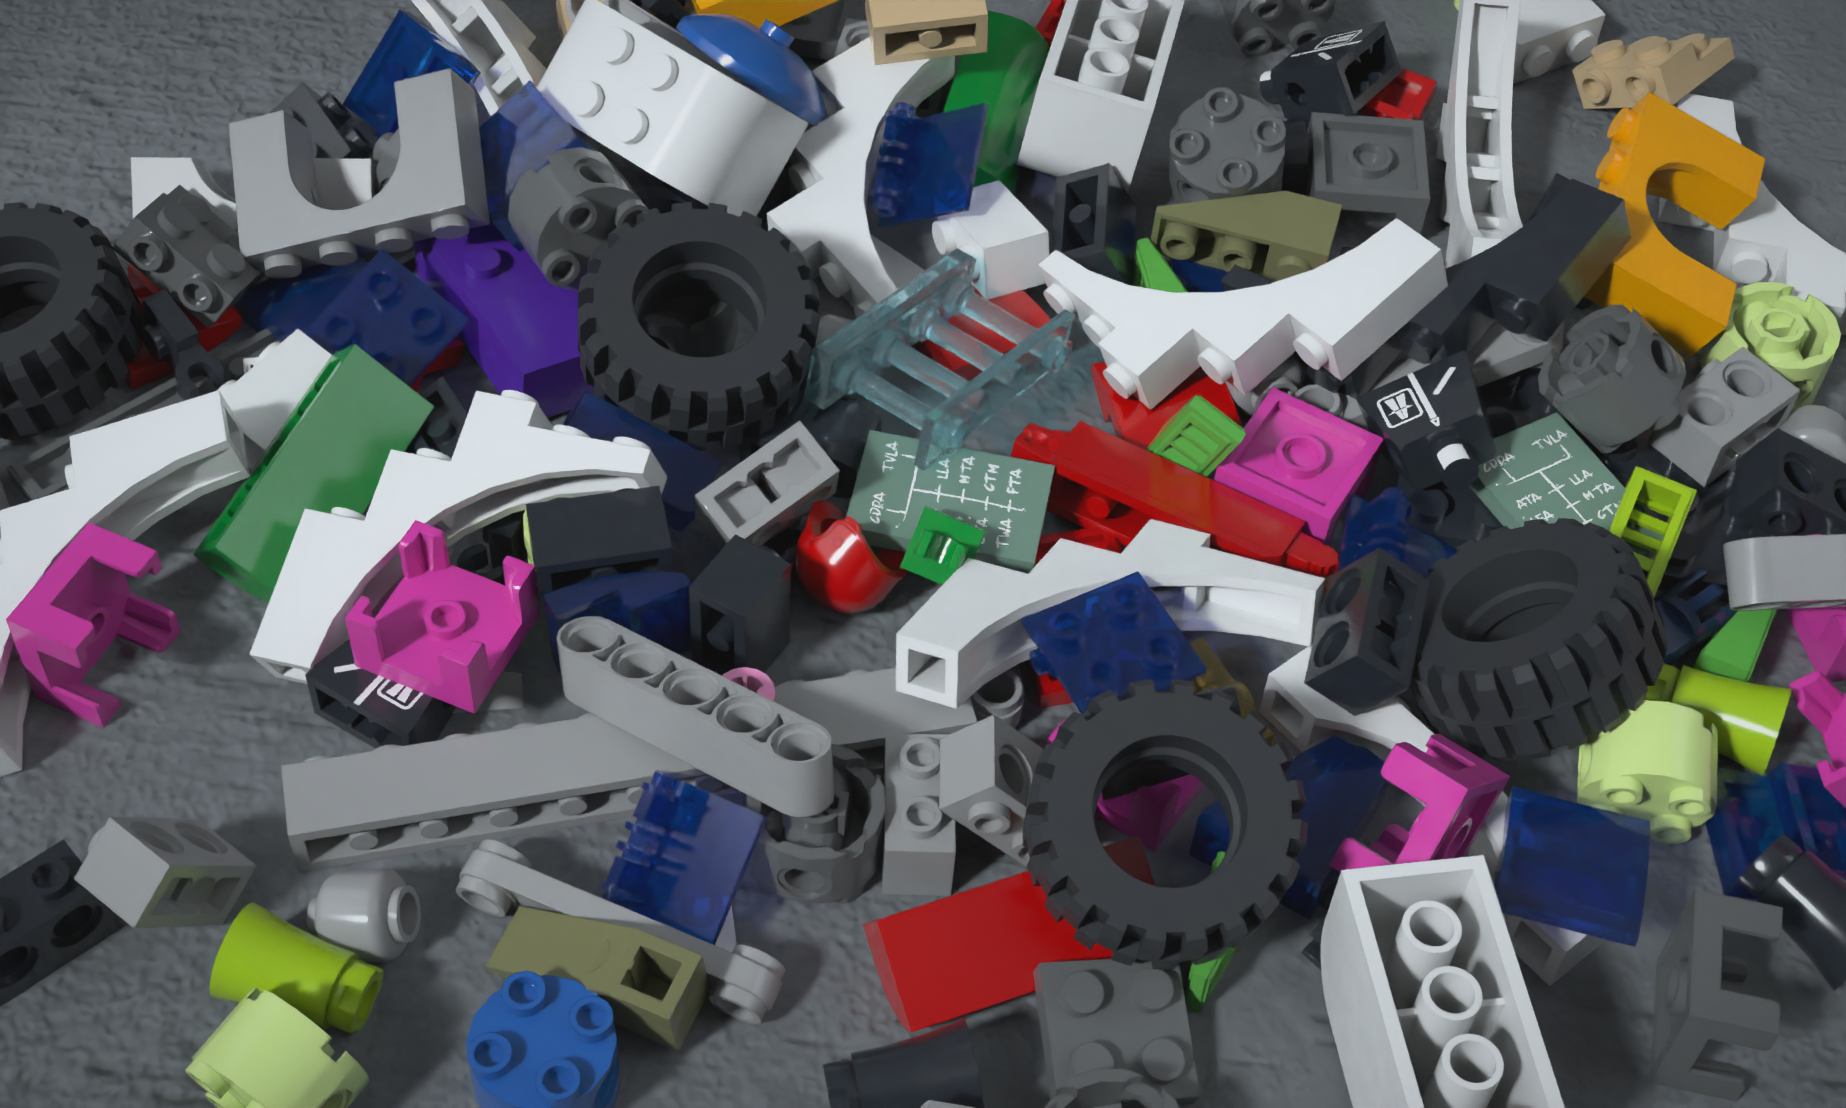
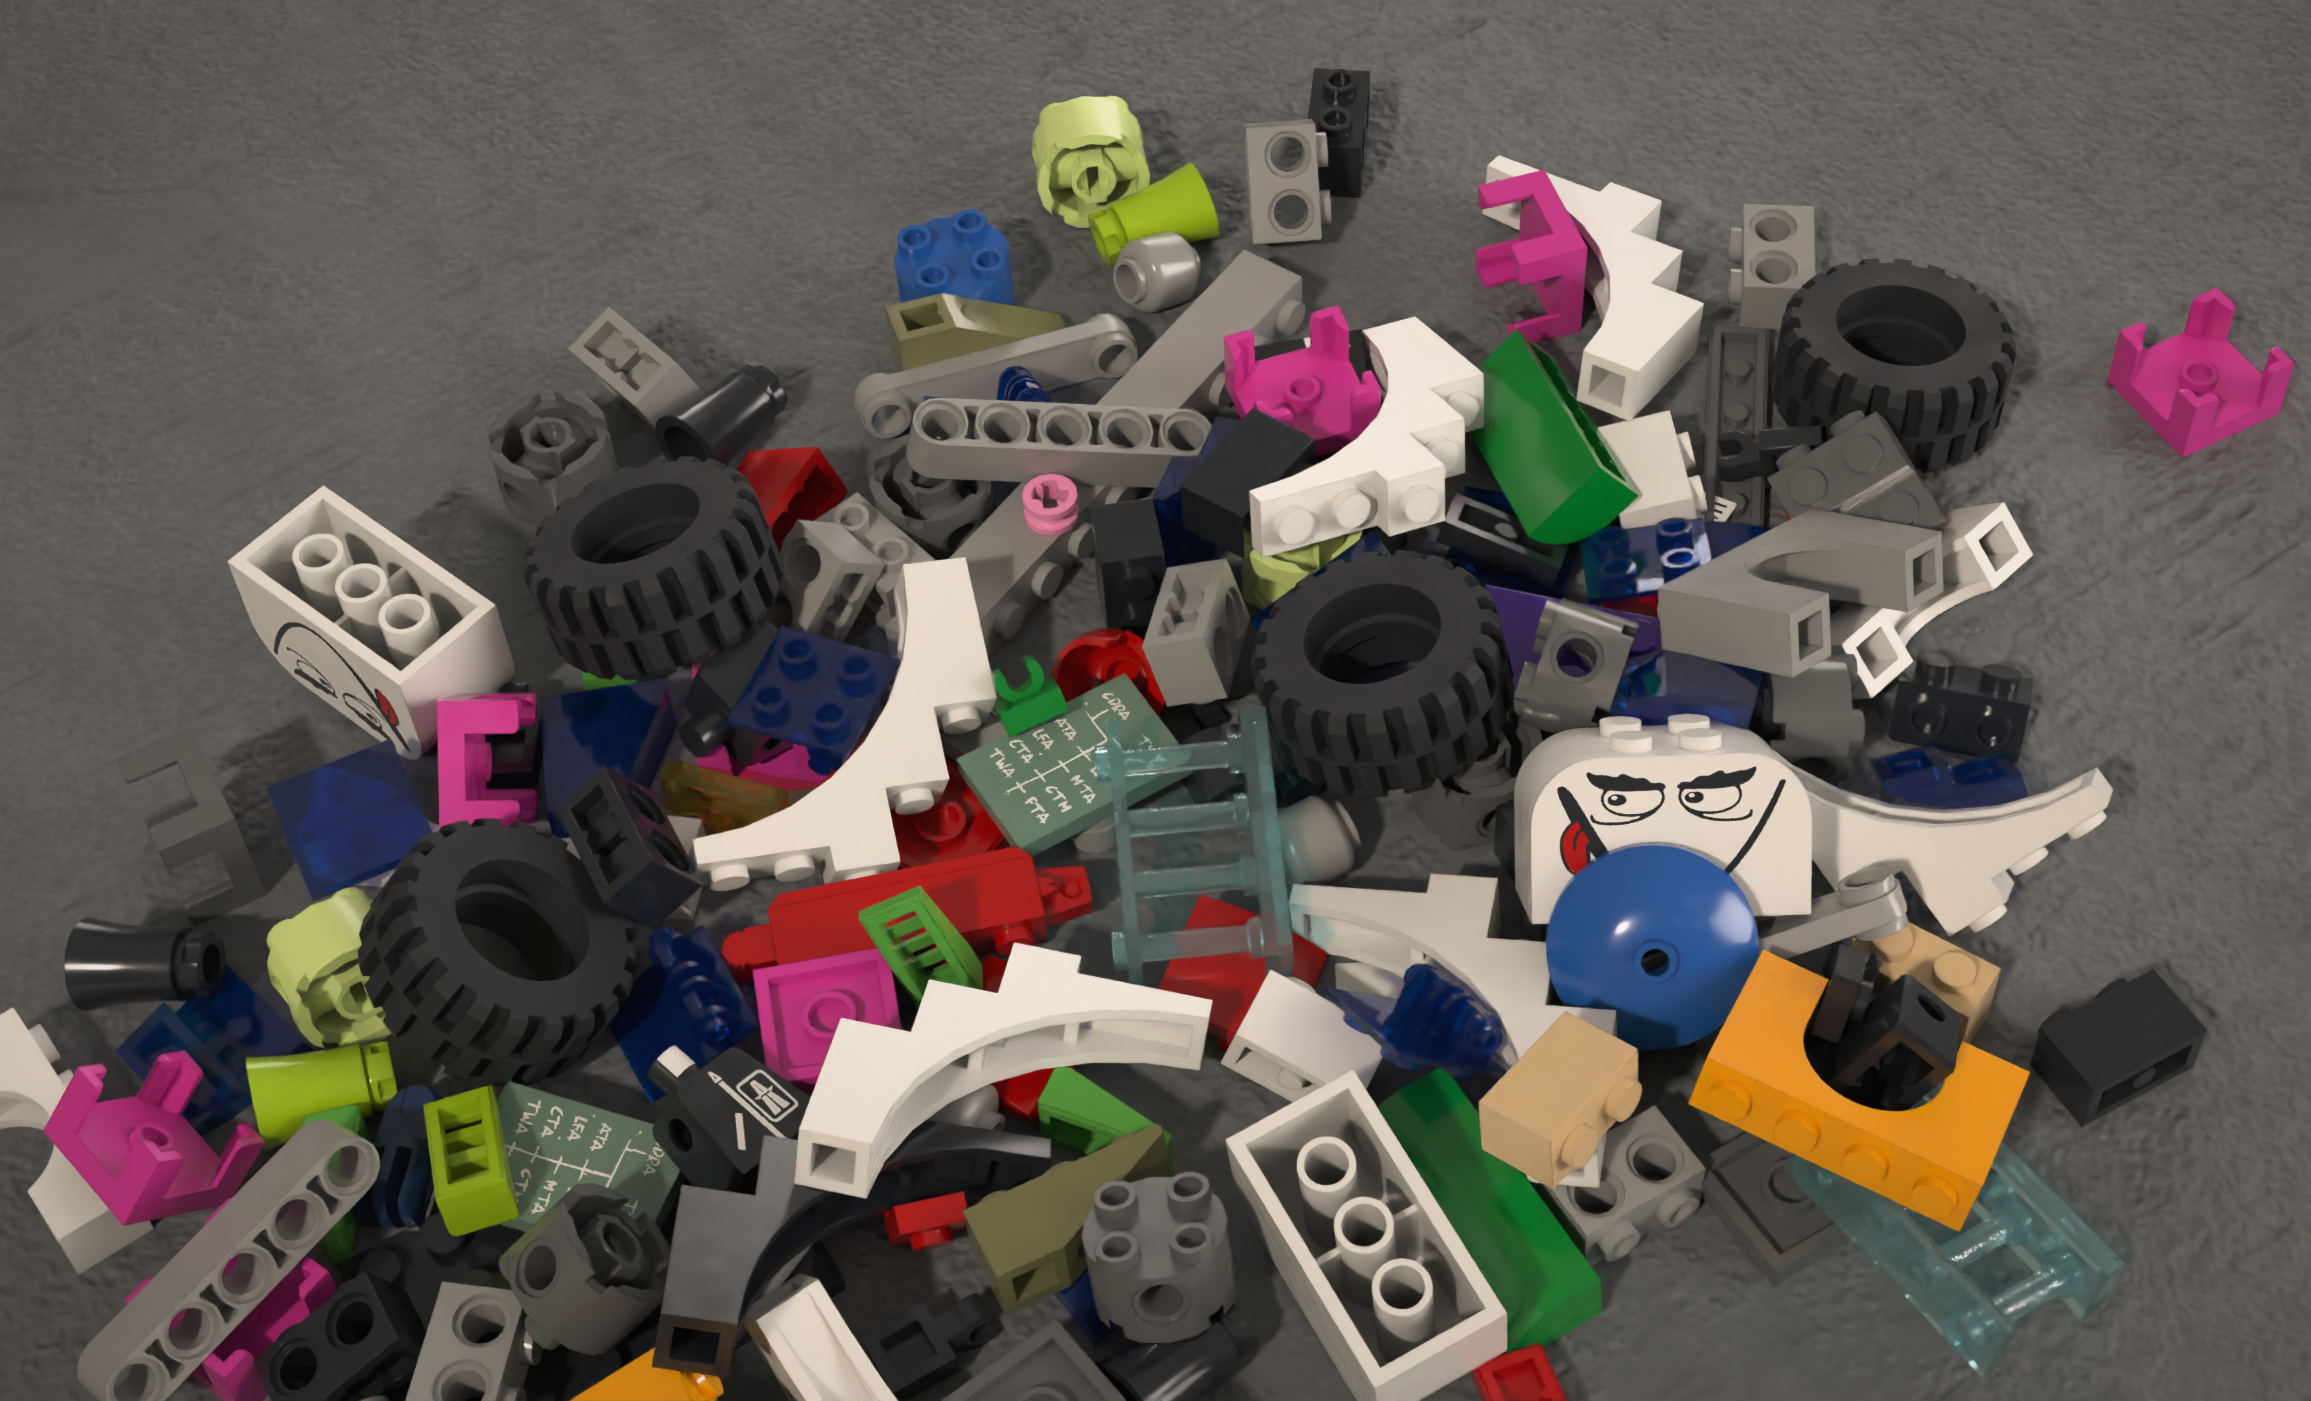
camera: 145 degrees right, 0 degrees up
(1095, 222) = (1202, 1102): black brick -> none

